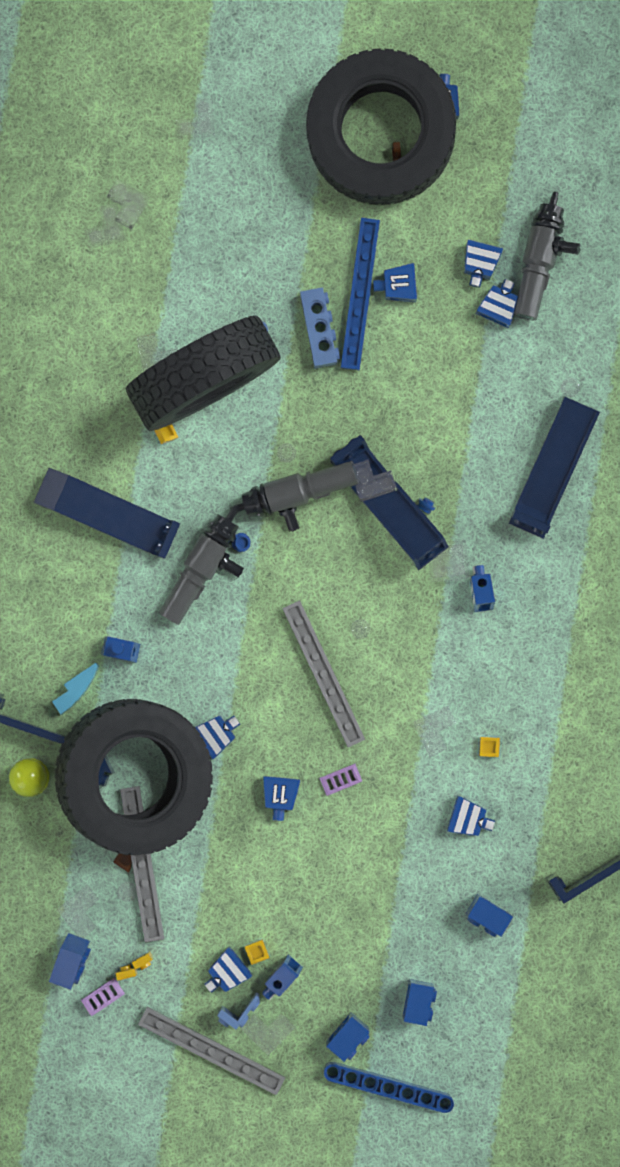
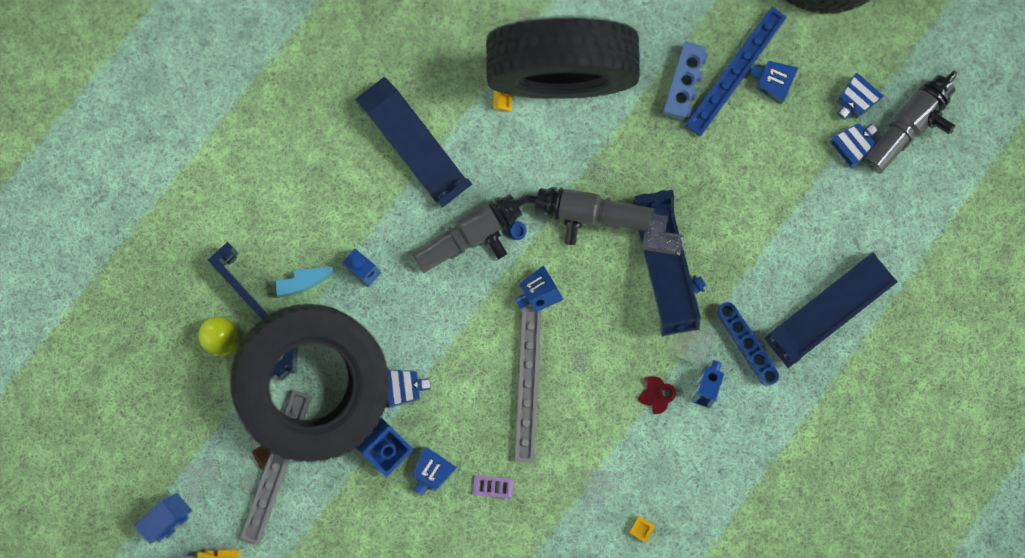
camera: 30 degrees right, 5 degrees down
(229, 797) = (385, 448): none -> blue brick
(289, 586) = (539, 291): none -> blue torso
(438, 624) = (654, 396): none -> dark red plate
(507, 536) = (749, 354): none -> blue beam

